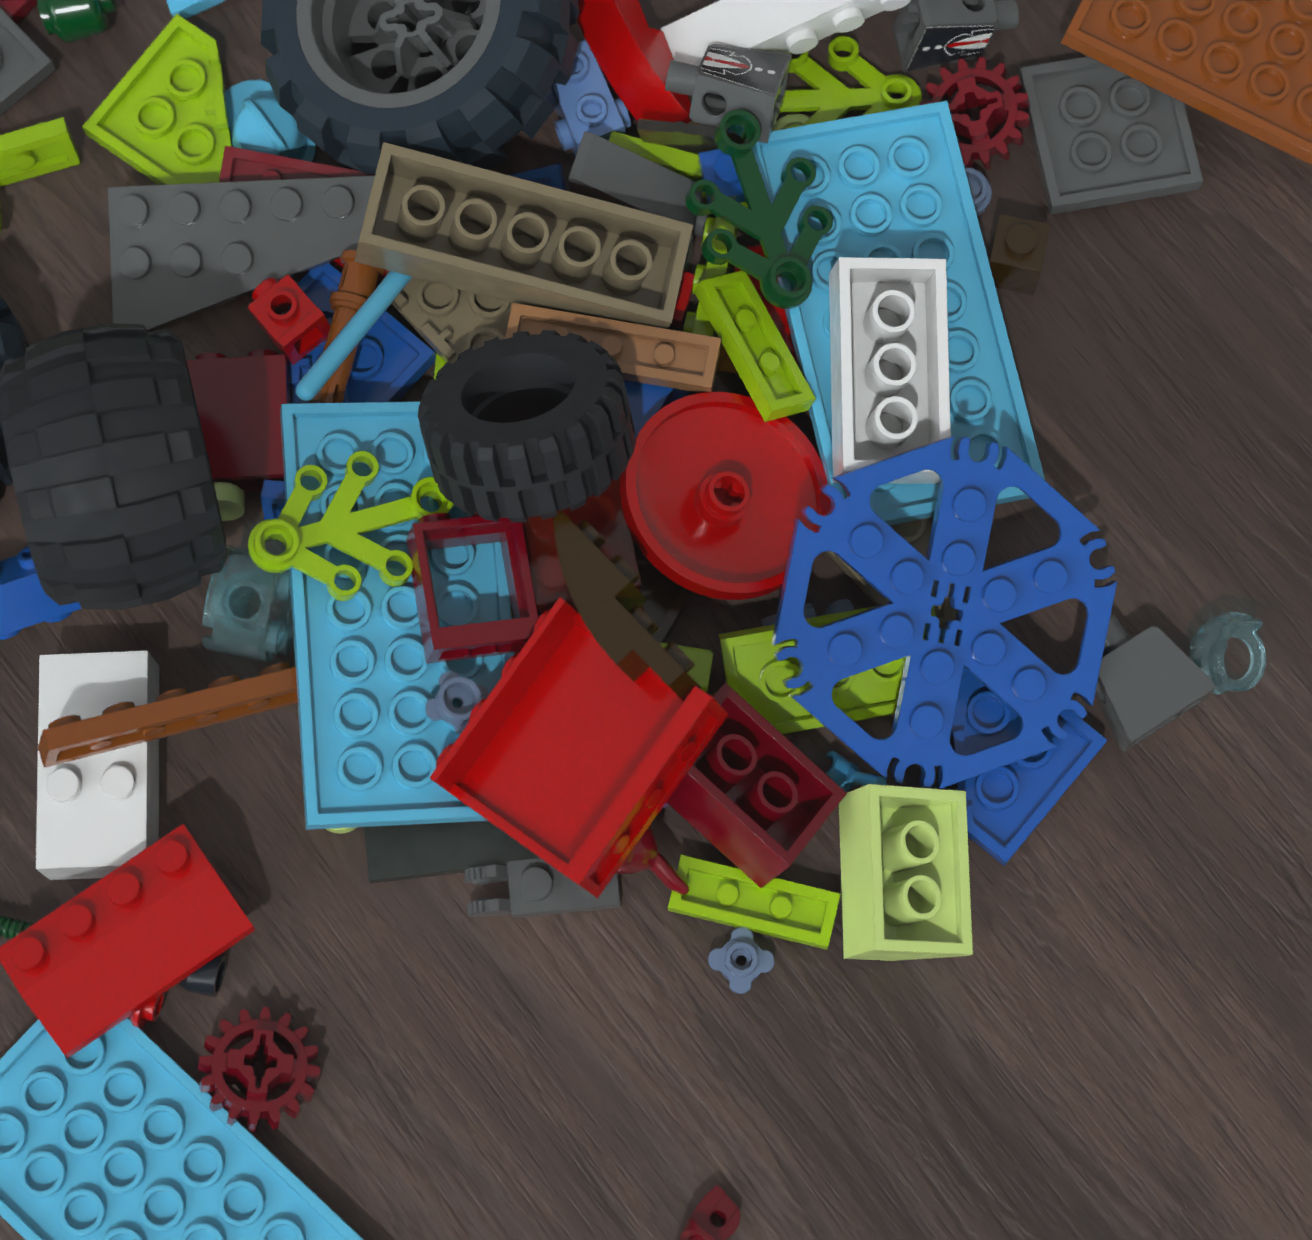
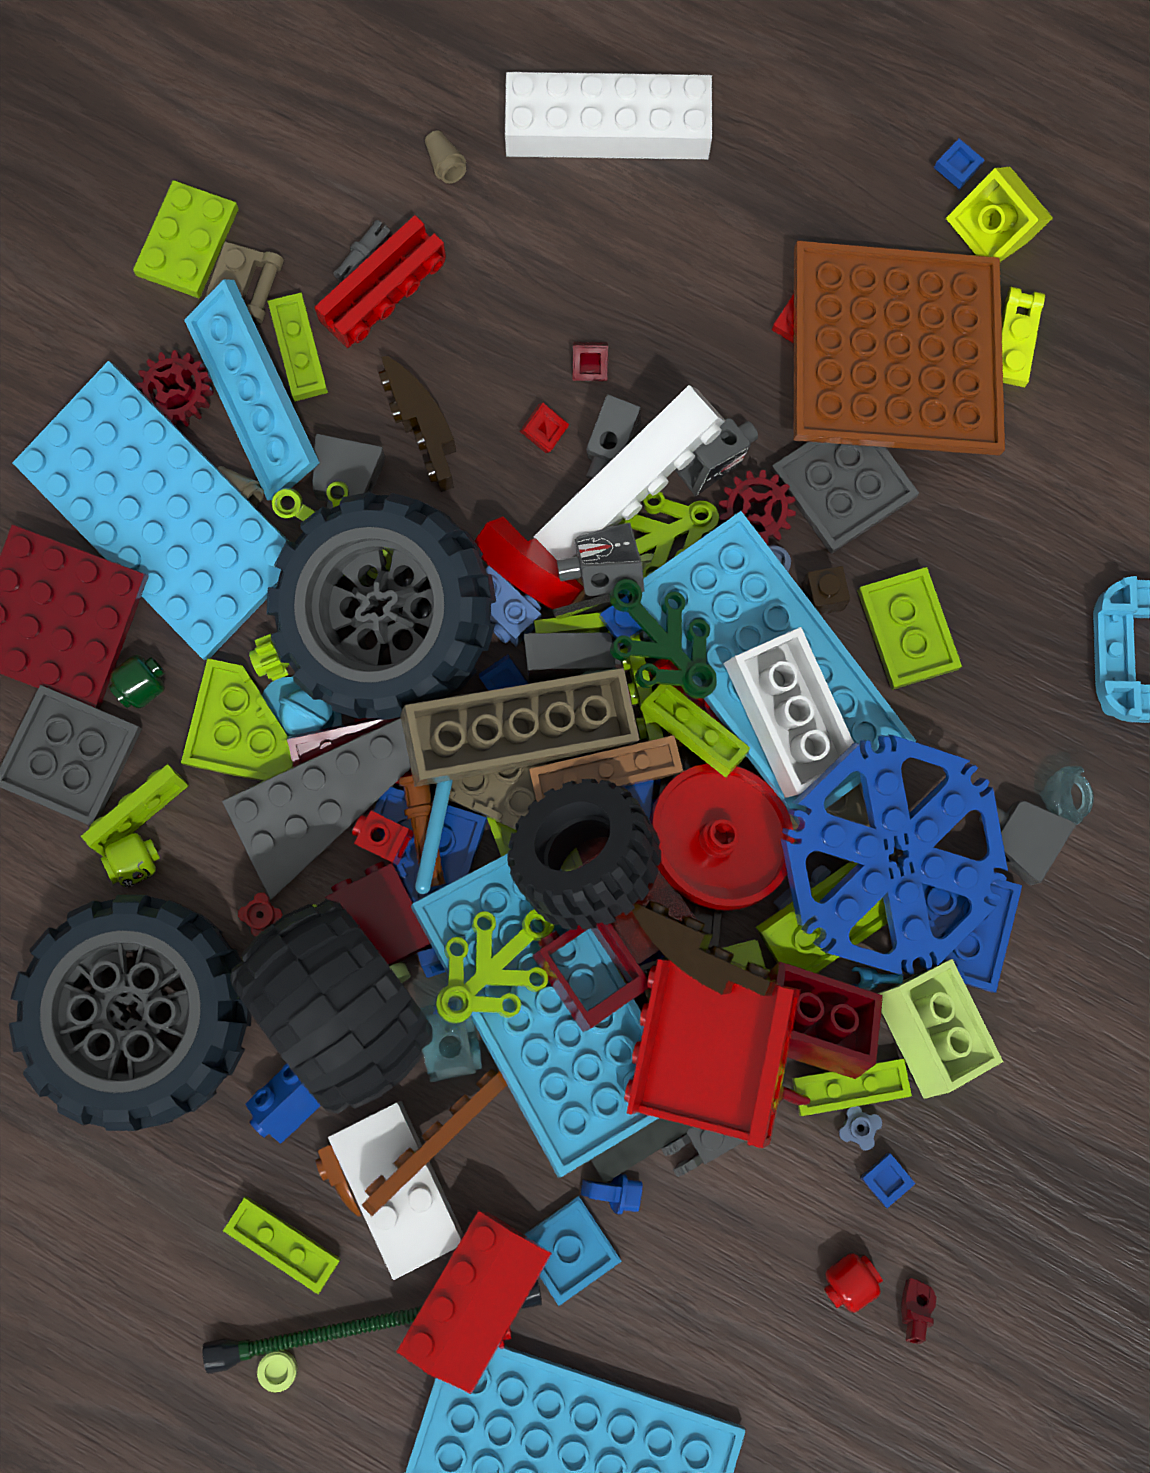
camera: 30 degrees left, 5 degrees up
(25, 706) = (331, 1169): none -> dark orange plate
(237, 1069) = (600, 1357): dark red gear -> none
(245, 45) = (266, 660): none -> lime gear
(290, 952) = (577, 1248): none -> dark azure tile
(386, 906) = (620, 1194): none -> blue piece
(453, 687) = (625, 1044): sand blue plate -> none
(634, 1152) = (852, 1282): none -> red head
(745, 1043) = (887, 1180): none -> blue plate
(1109, 349) = (909, 628): none -> lime plate

